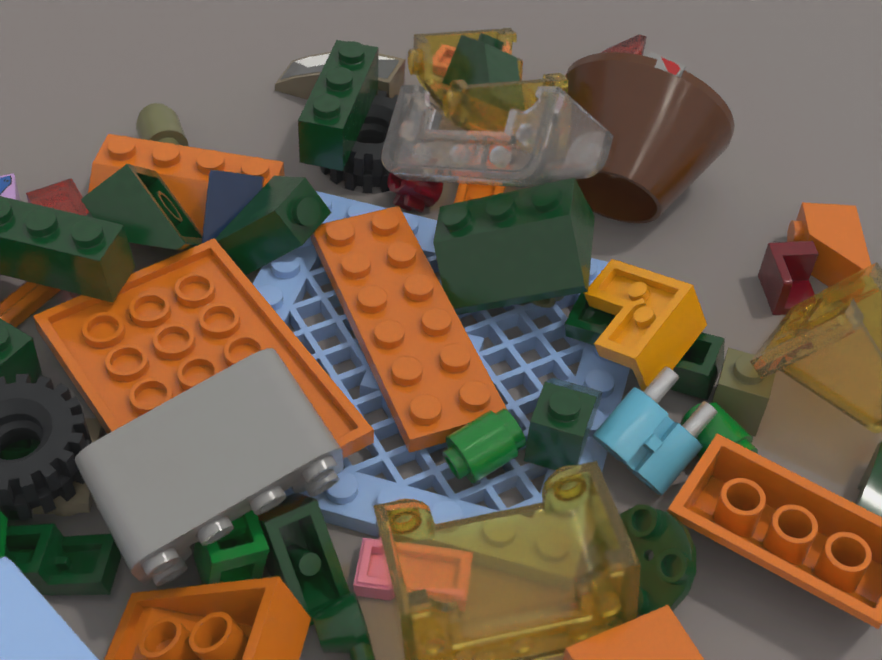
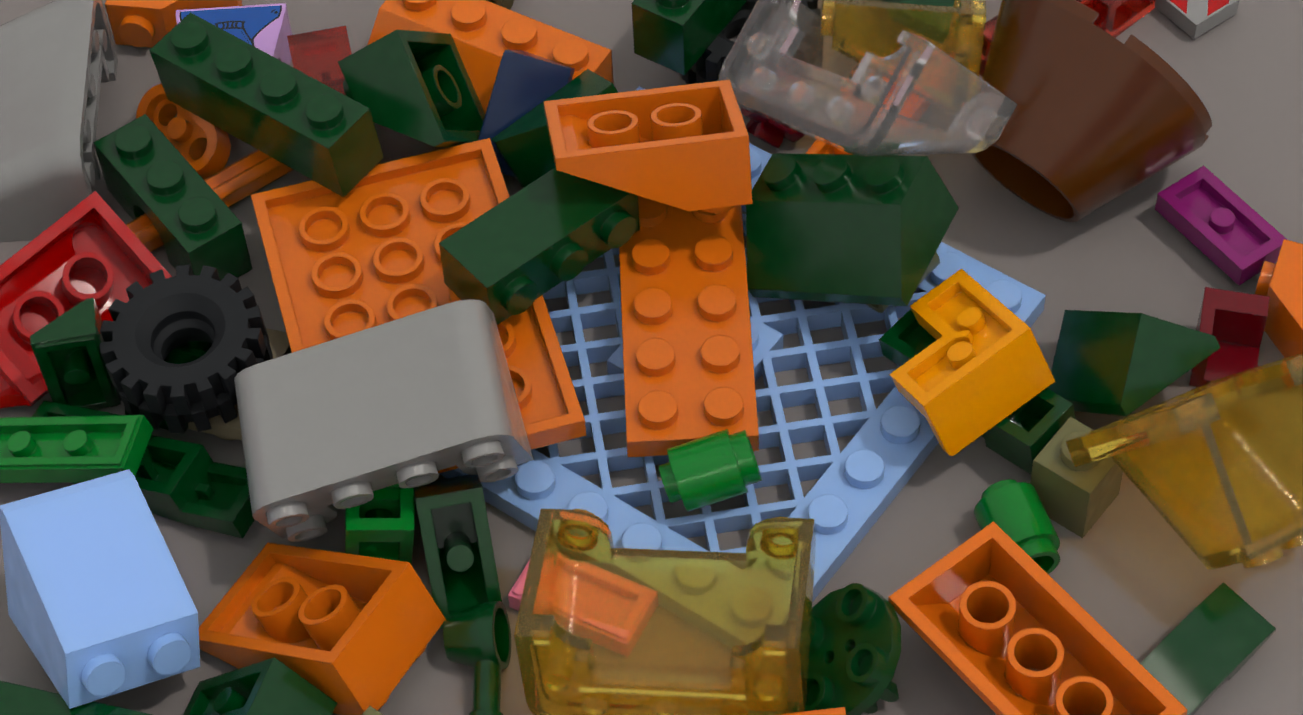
camera: 25 degrees right, 5 degrees up
(289, 295) = (536, 241): none -> dark green brick
(368, 208) = (658, 143): none -> orange slope
(561, 424) = (818, 461): dark green slope -> none
(648, 439) = (919, 508): medium azure piece -> none
(745, 299) = (1122, 359): none -> dark green slope
(746, 205) = (1220, 224): none -> magenta plate

